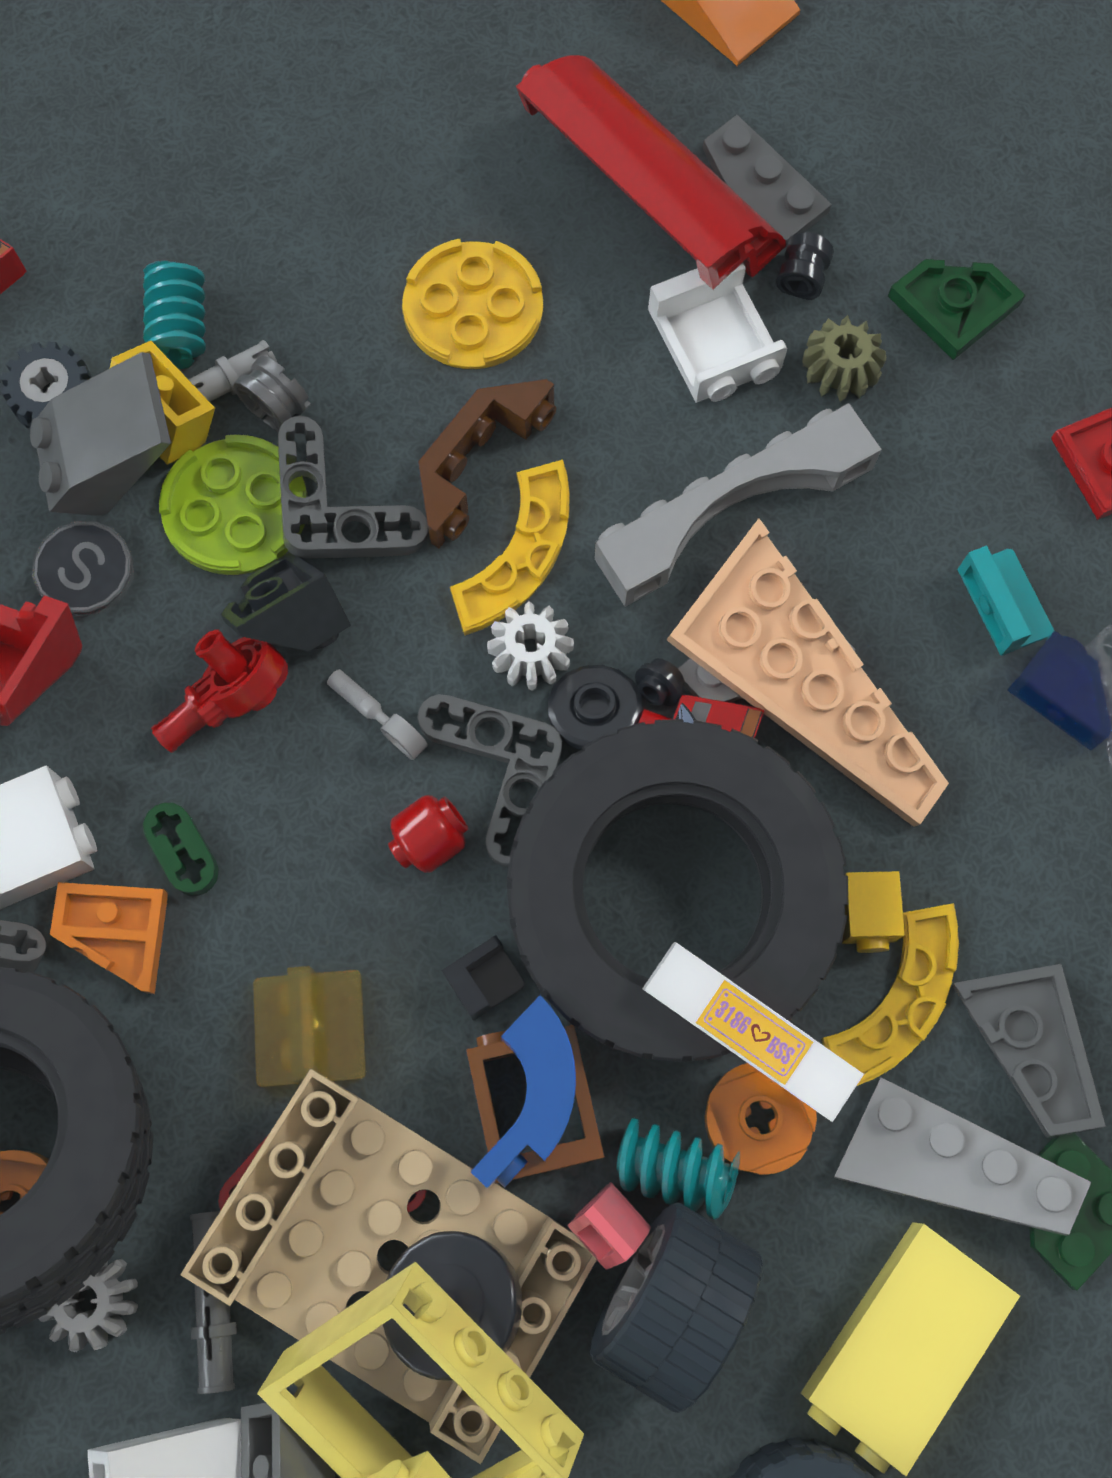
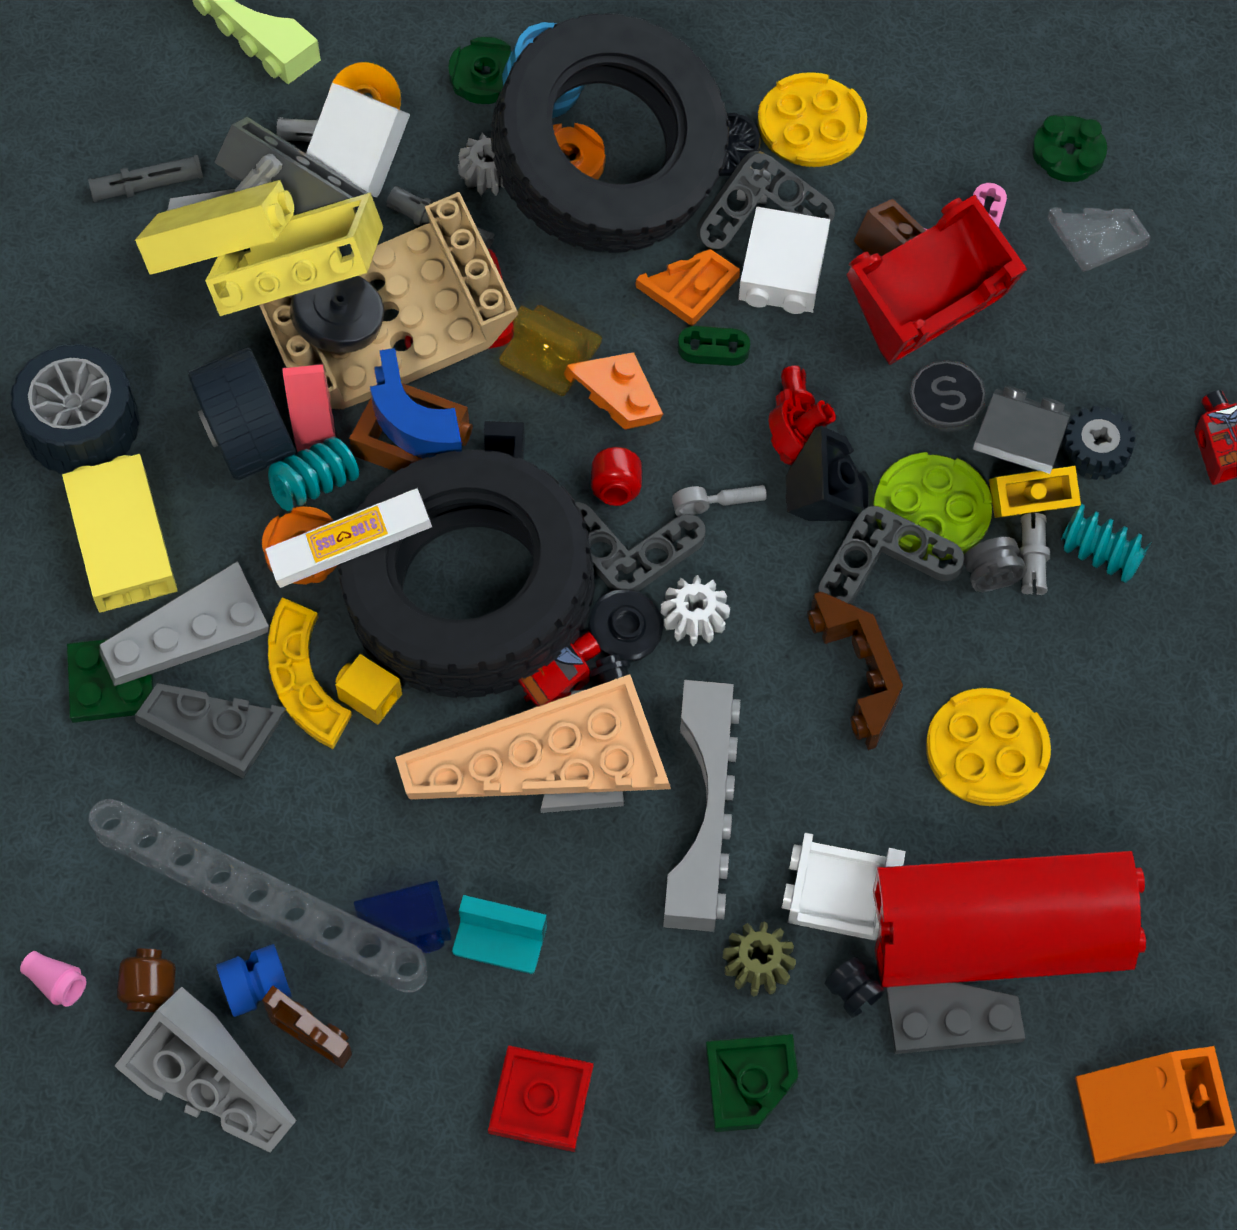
camera: 125 degrees right, 10 degrees down
(311, 911) = (618, 388): none -> orange wing
(528, 557) = (764, 660): yellow tile -> none

